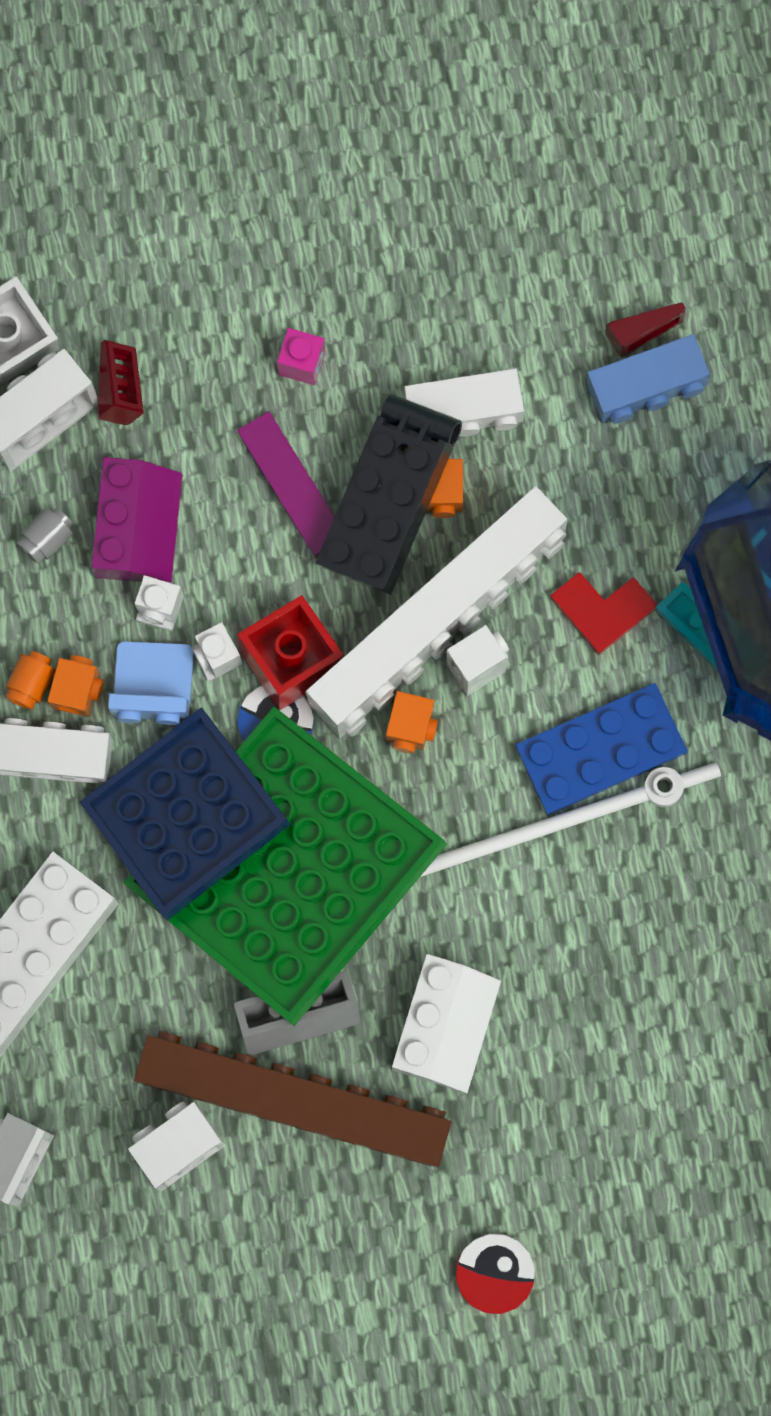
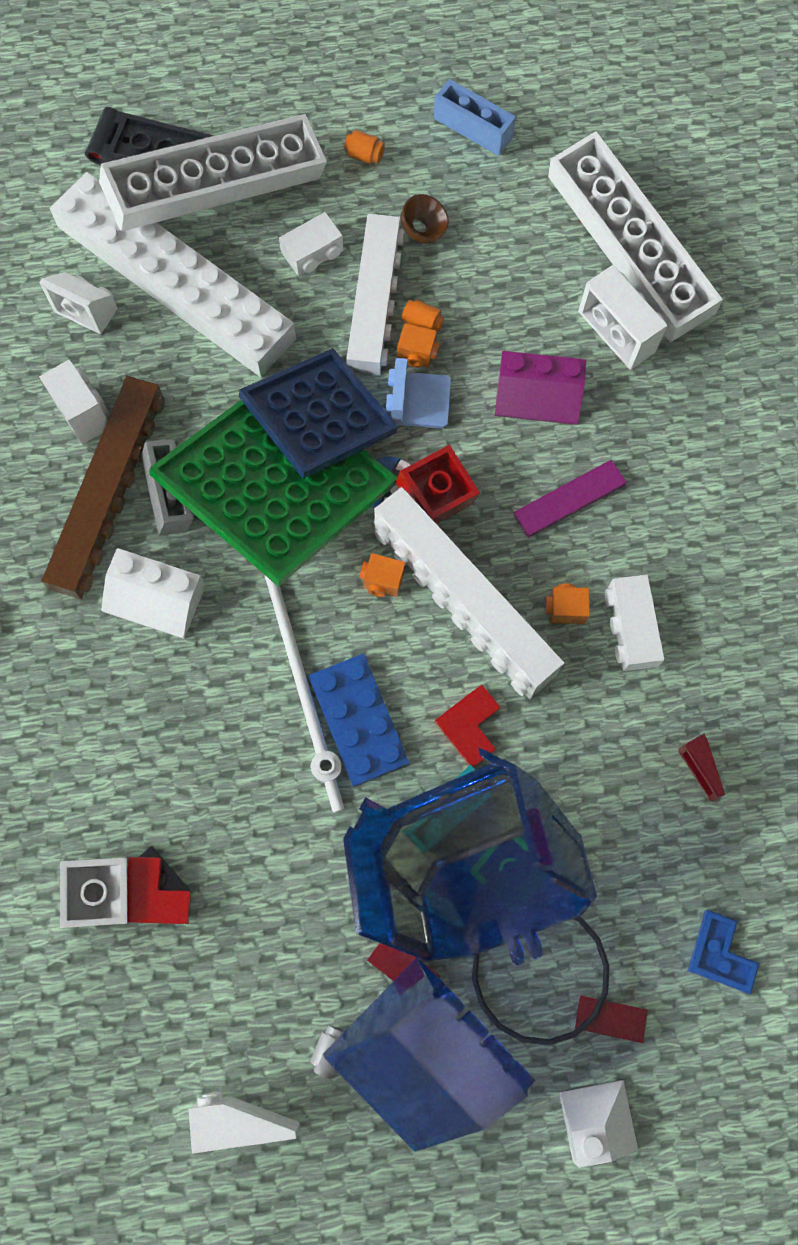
camera: 85 degrees right, 5 degrees down
(45, 534) = (529, 328): light grey brick -> none
(115, 406) = (628, 374): dark red slope -> none
(158, 603) = (478, 401): white brick -> none
(216, 652) = (440, 435): white brick -> none
(301, 356) = (669, 503): dark pink brick -> none
(389, 493) = (560, 558): black hinge -> none
(477, 659) = (427, 621): white brick -> none
(648, 380) = (659, 767): medium blue brick -> none

